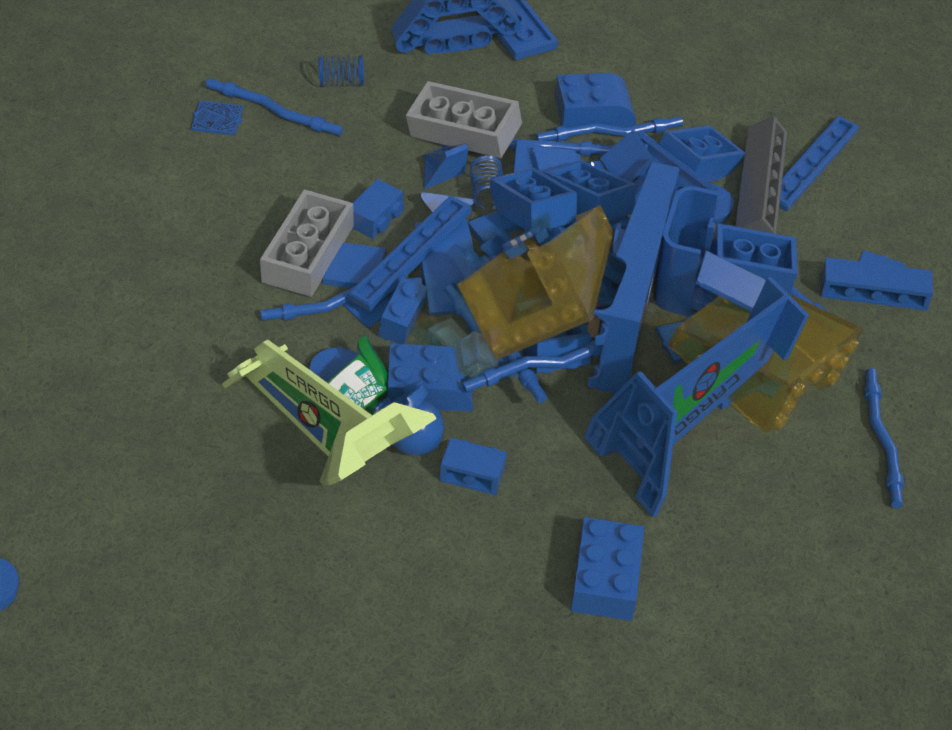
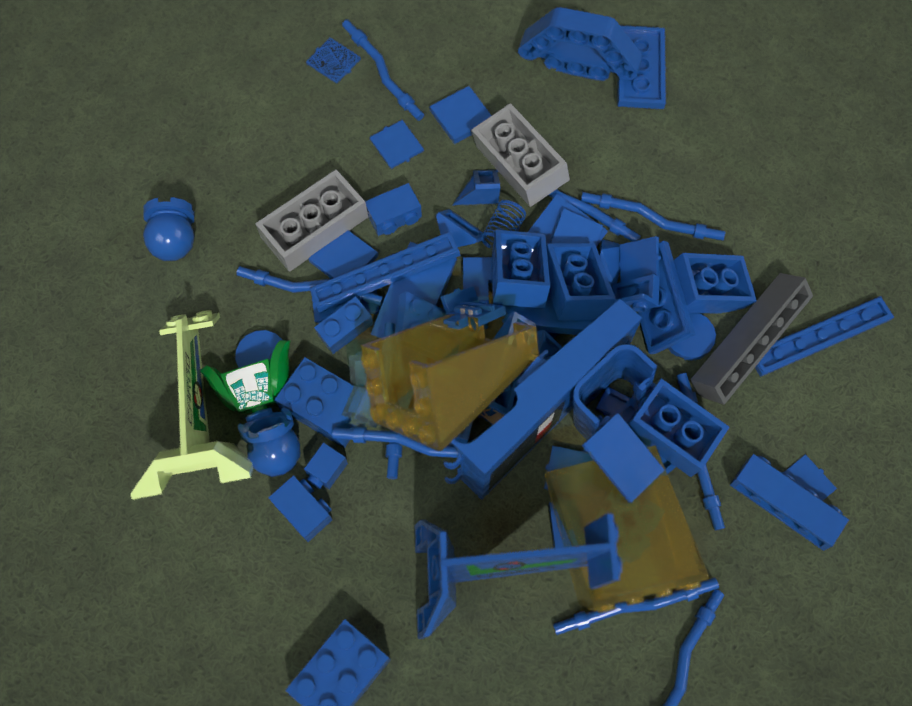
camera: 35 degrees right, 20 degrees up
(170, 300) = (168, 228): none -> blue tile
(333, 161) = (396, 144): none -> blue piece
(360, 71) = (470, 61): blue piece -> none
(377, 116) = (460, 114): none -> blue tile
(471, 422) = (325, 467): none -> blue brick
(594, 99) = (656, 181): blue brick -> none
(780, 437) = (582, 620): none -> blue bar

